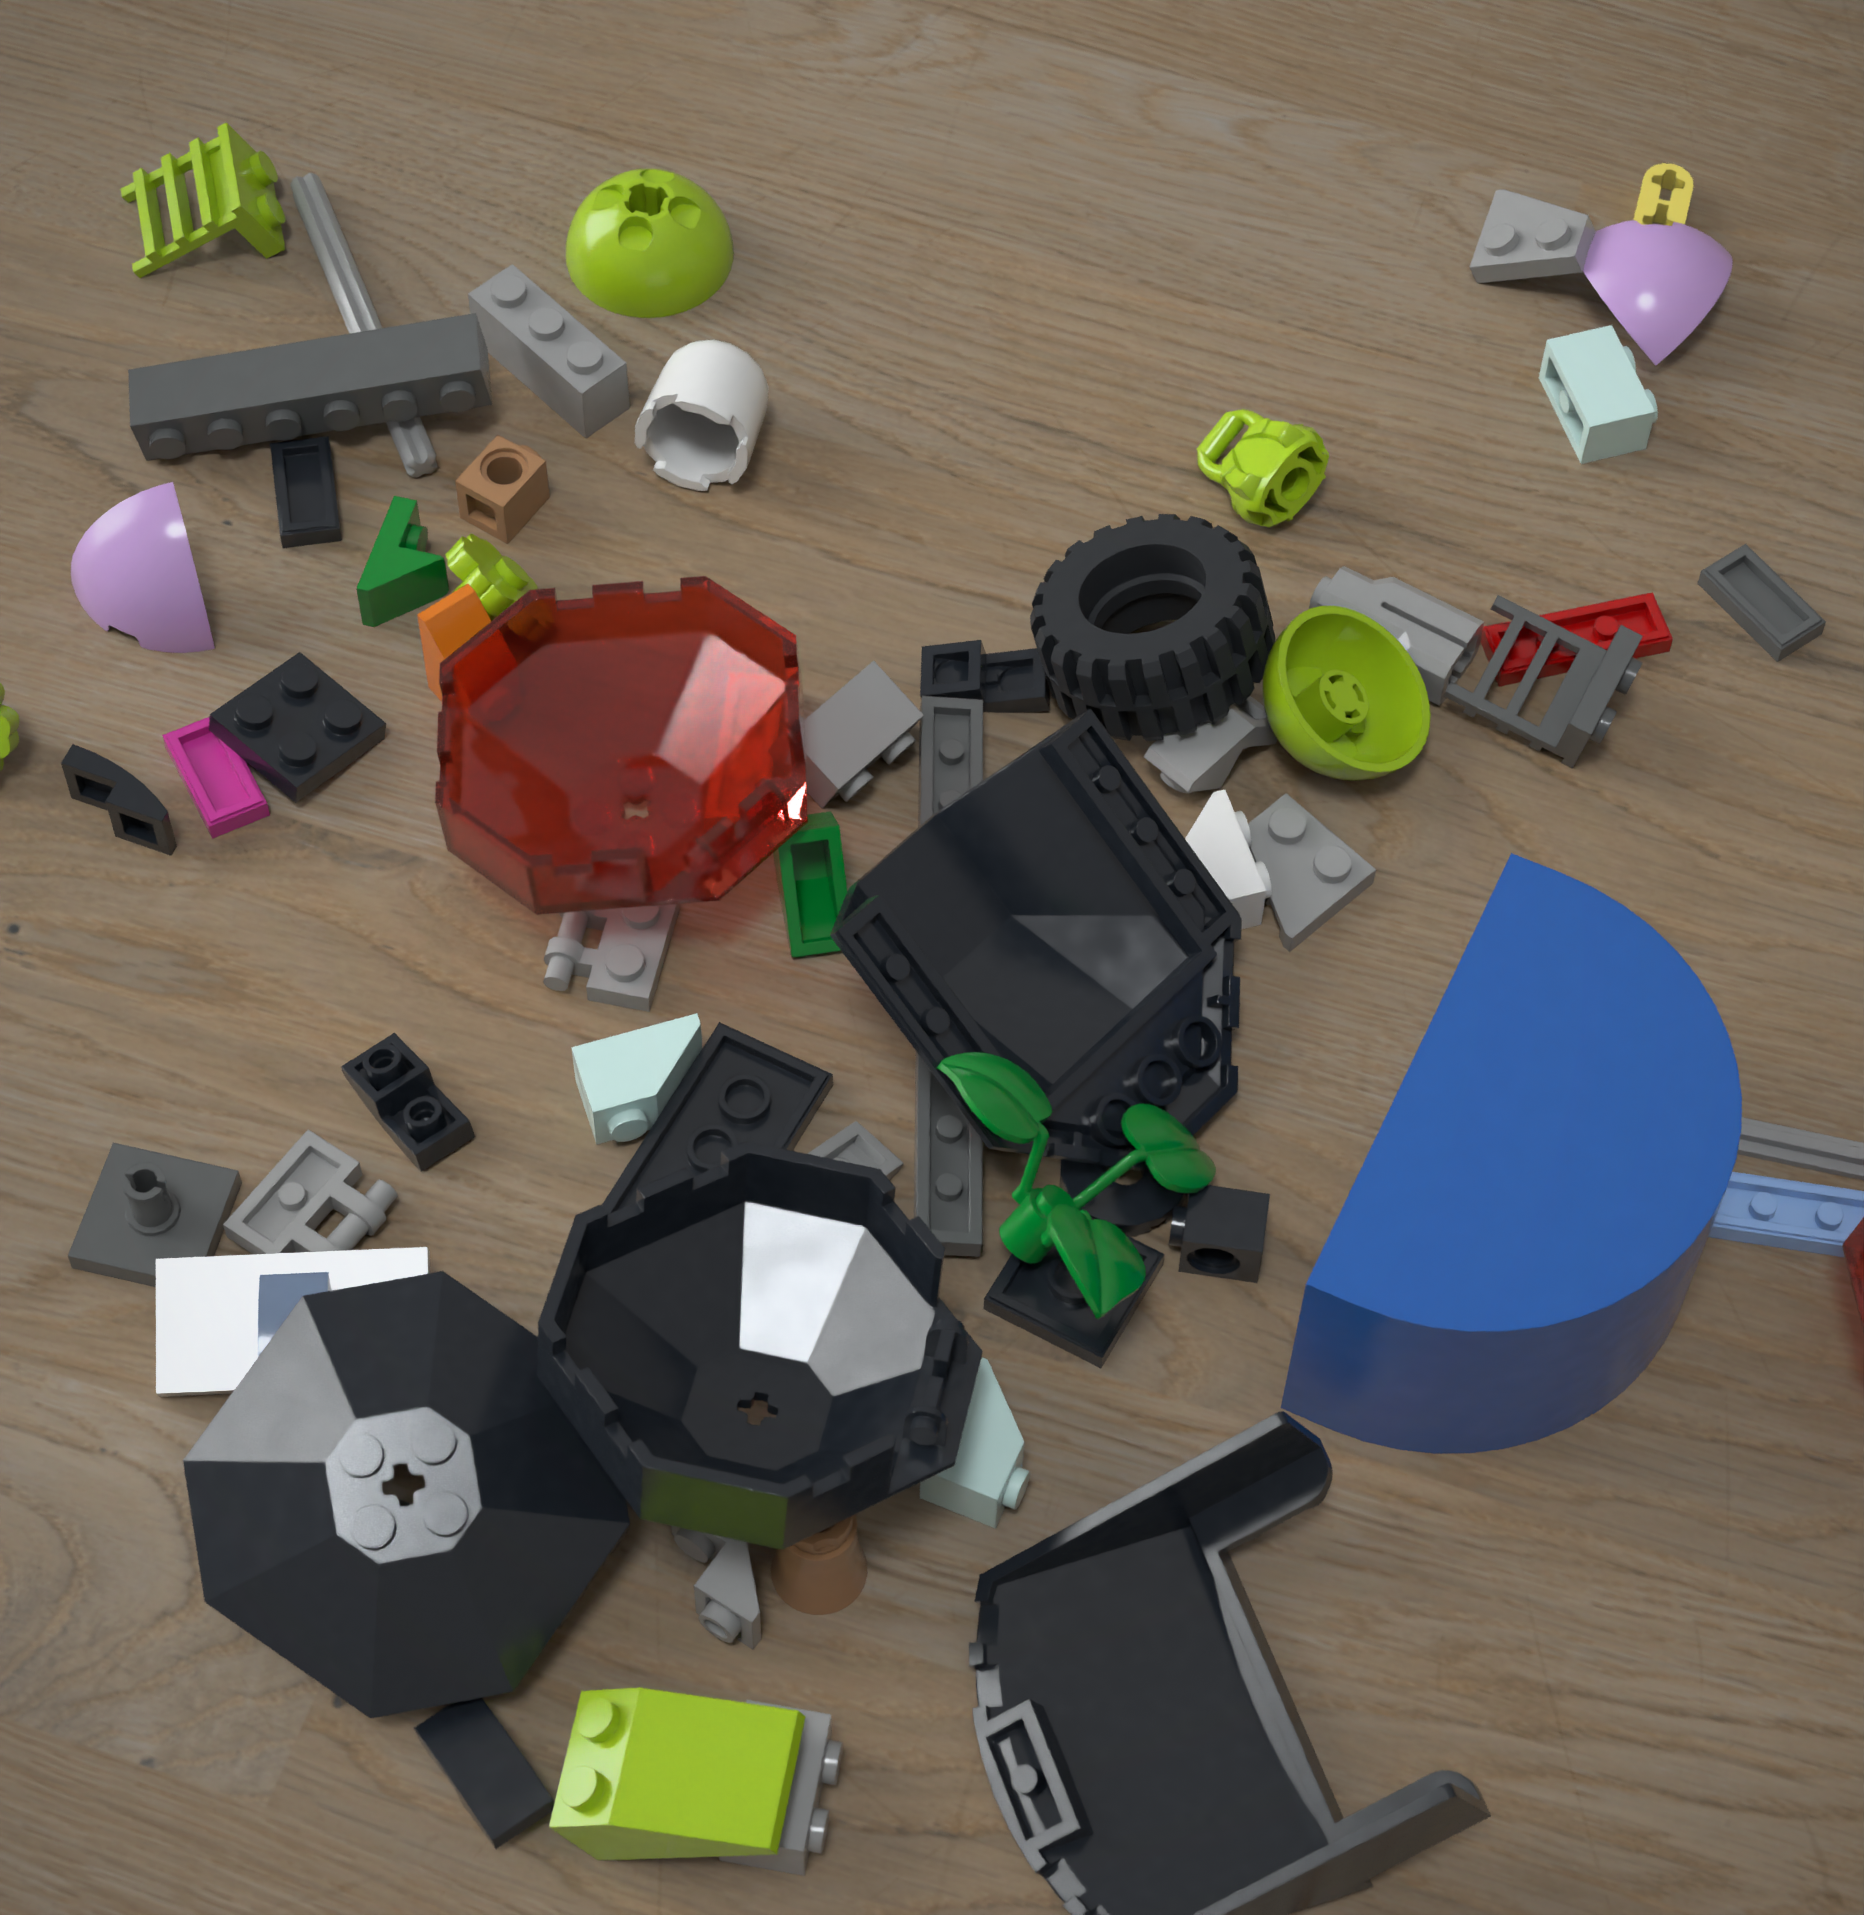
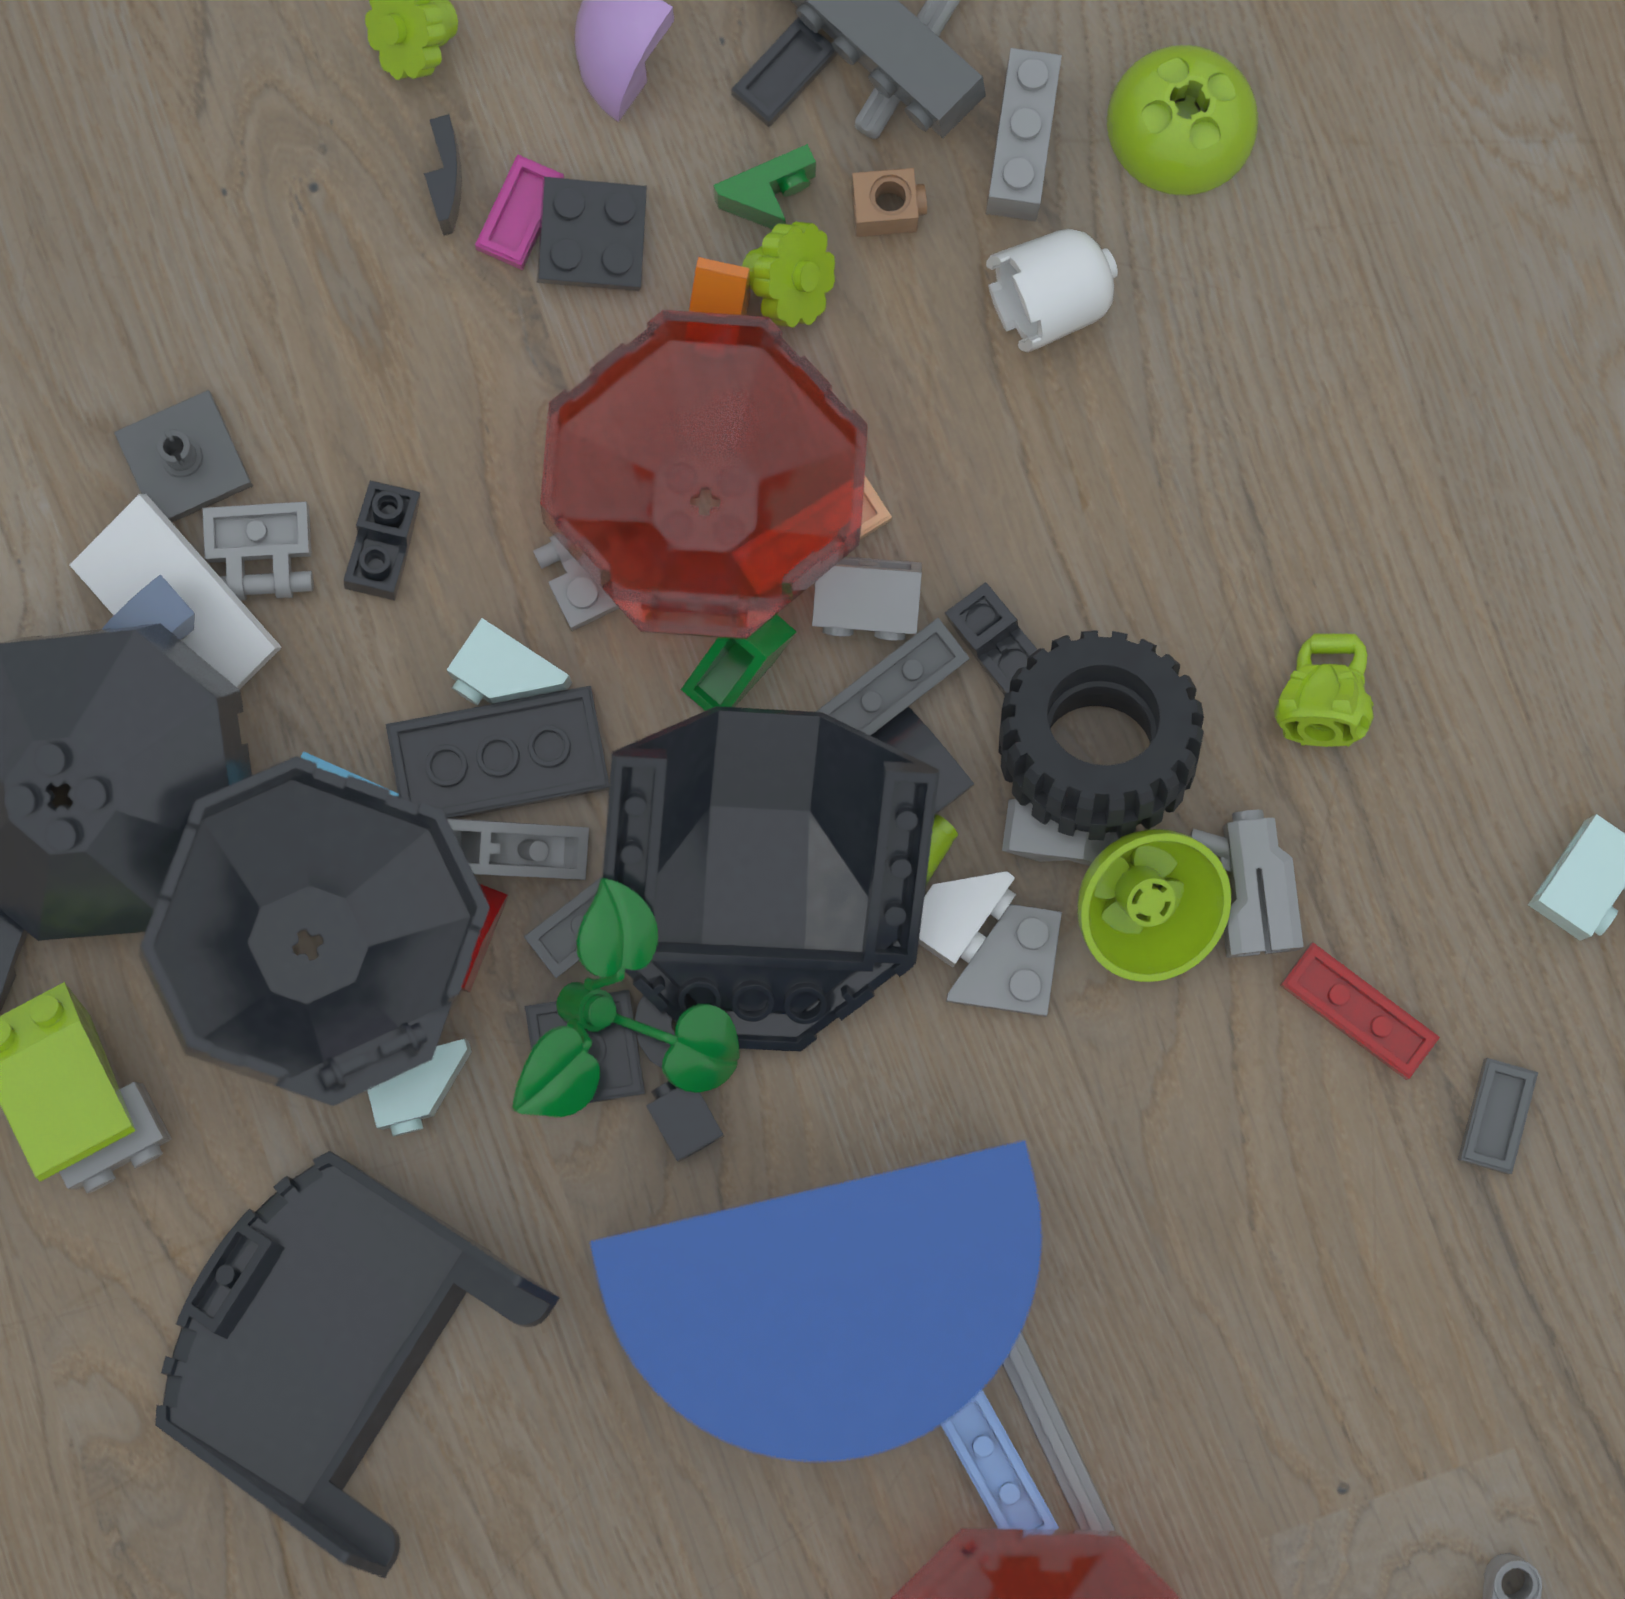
camera: 50 degrees right, 25 degrees up
(1581, 701) = (1297, 1056): dark grey plate -> none

